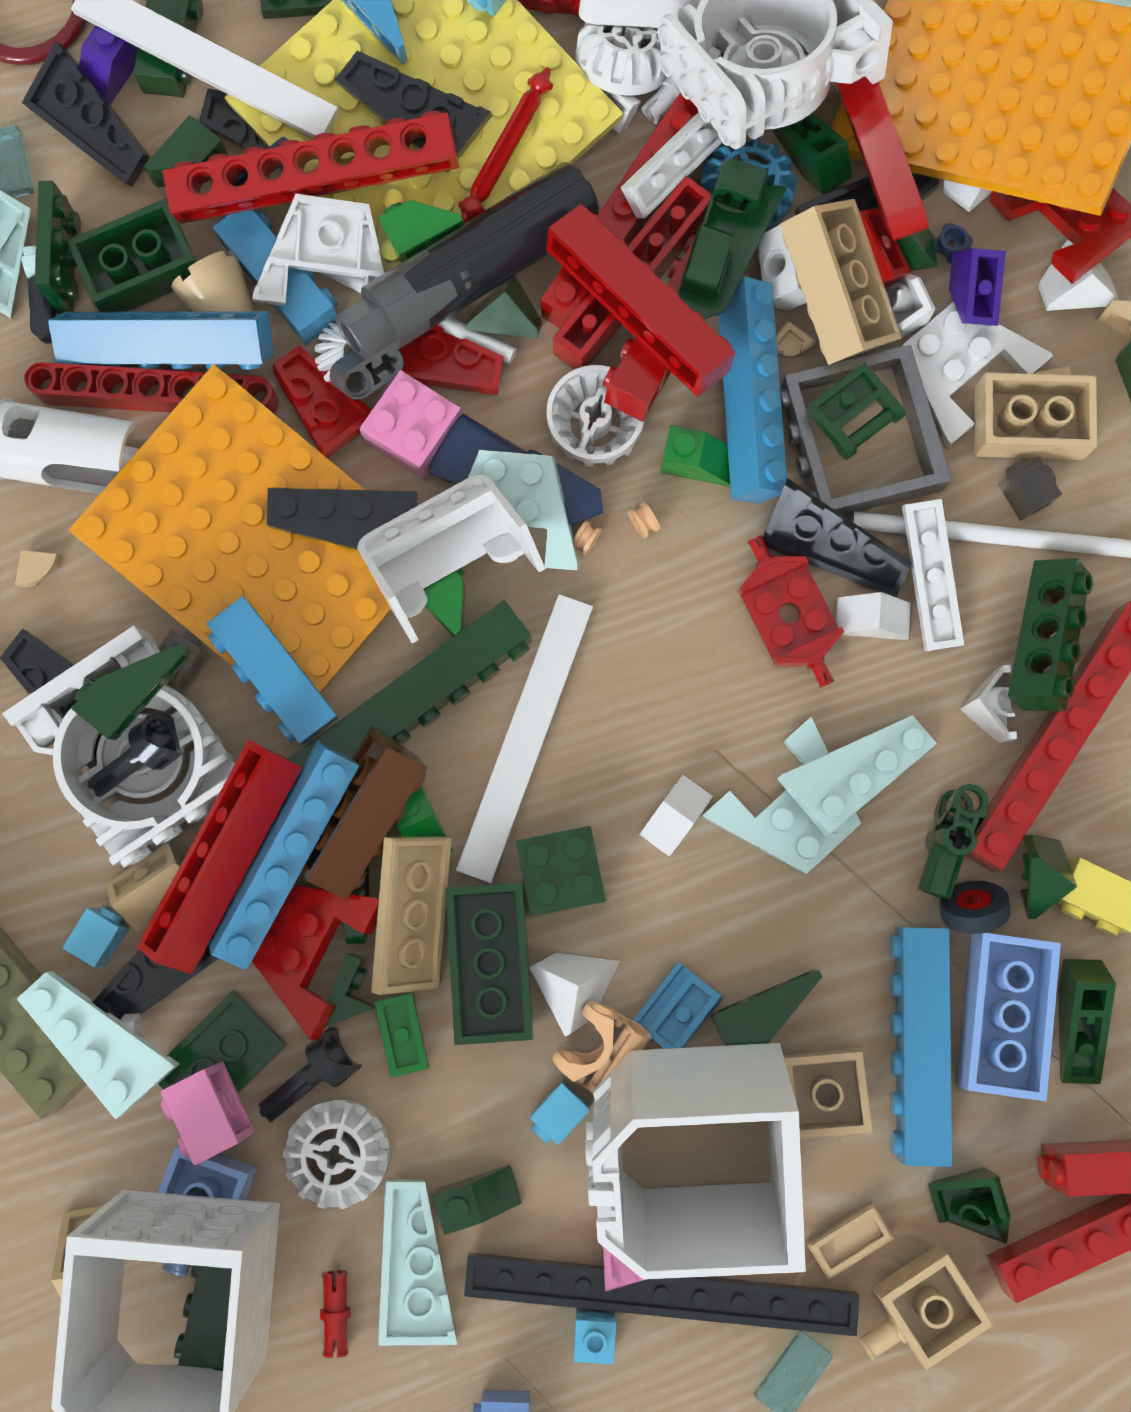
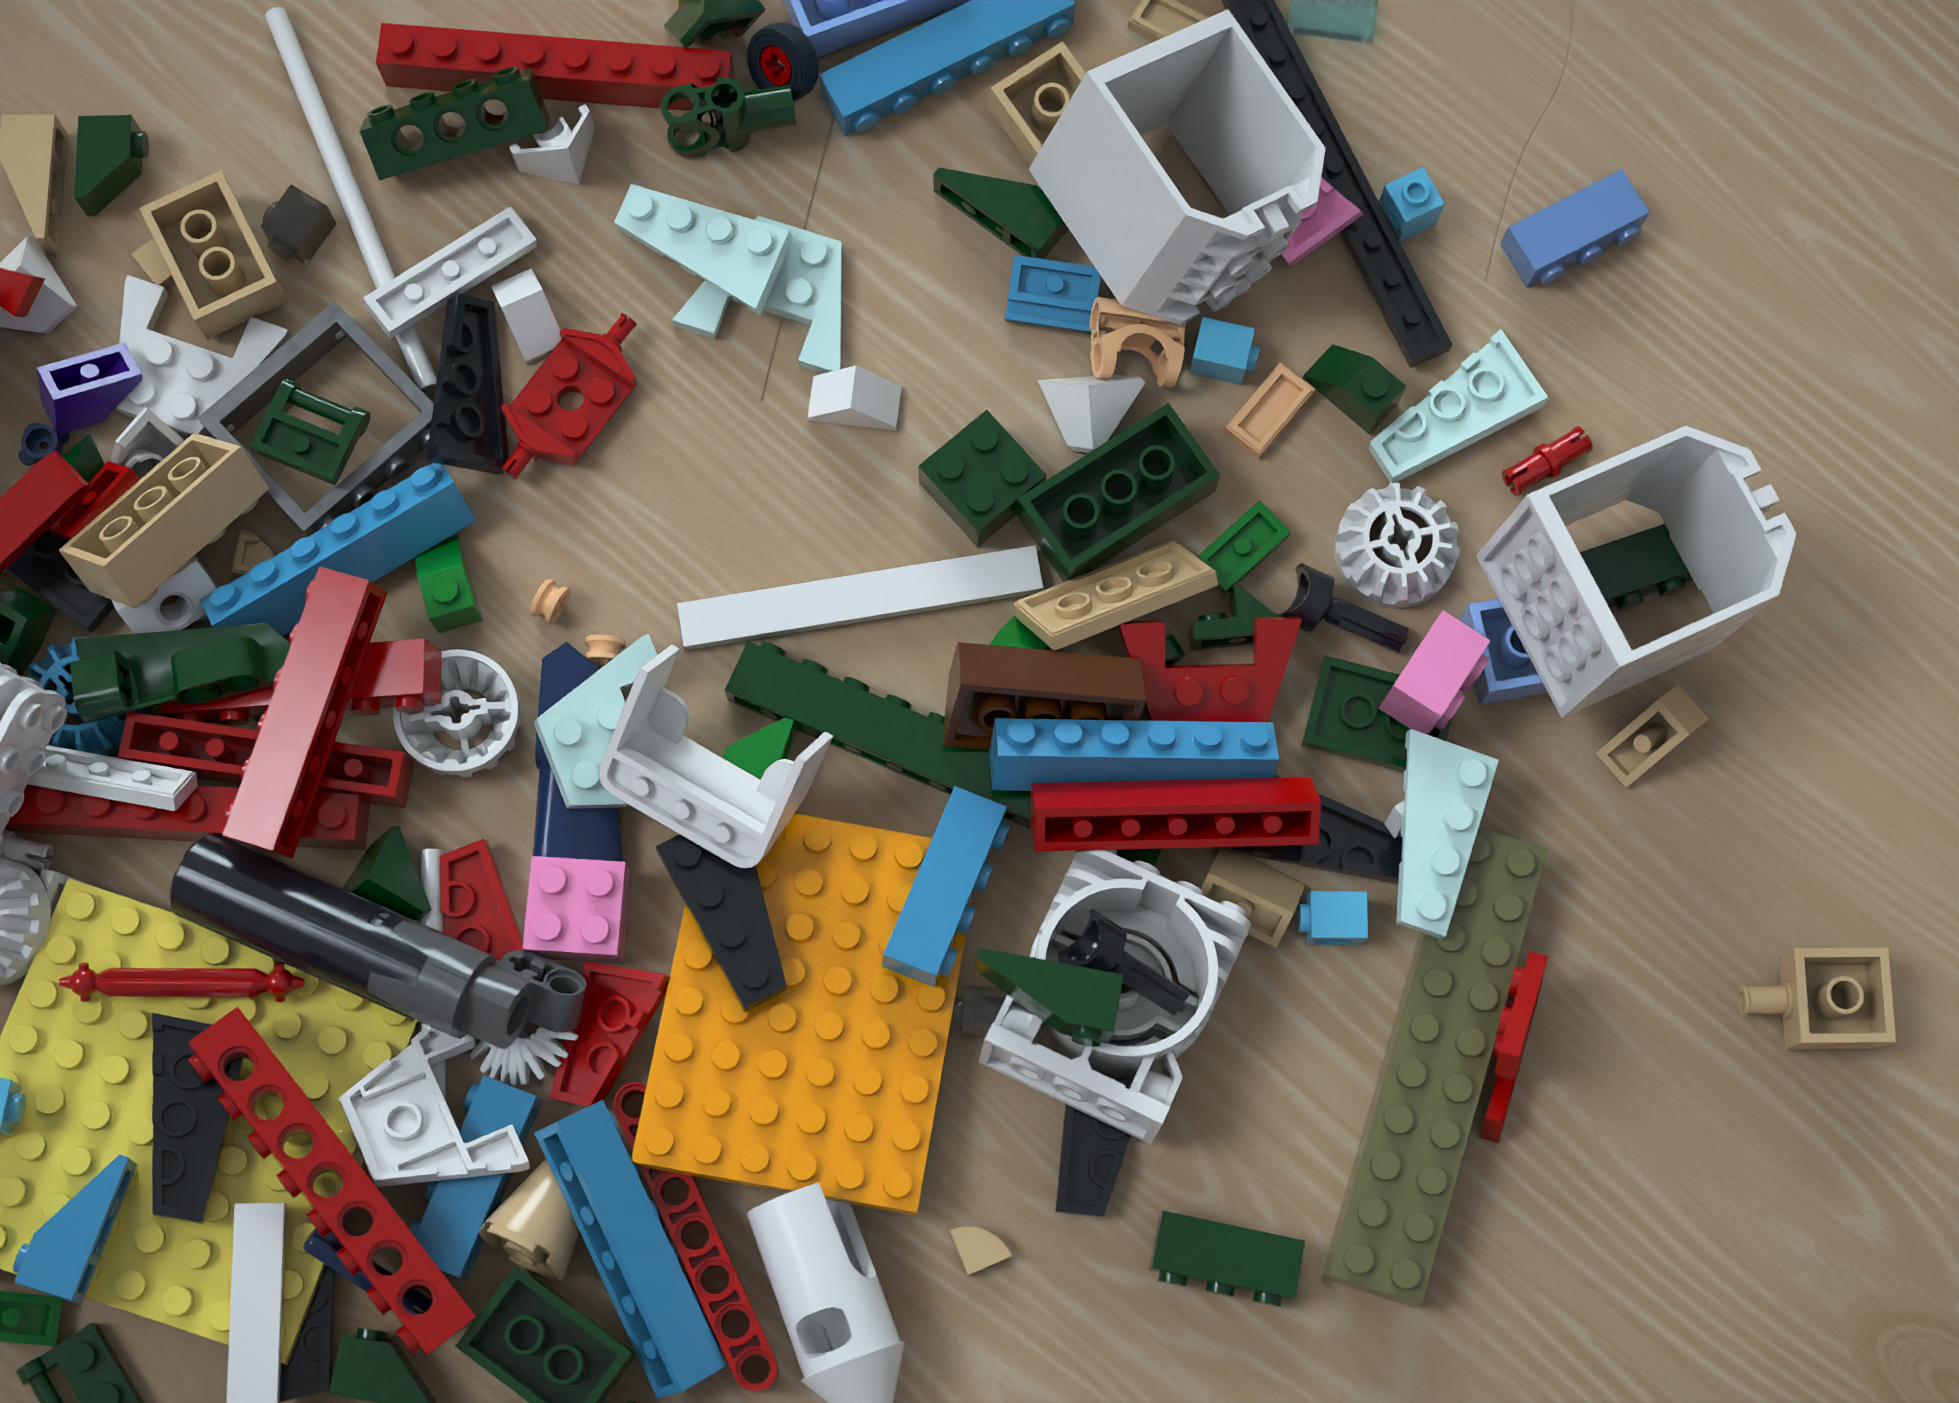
camera: 125 degrees left, 5 degrees down
(415, 226) = (341, 1026): green slope -> none
(496, 1122) = (1269, 410): none -> light nougat tile

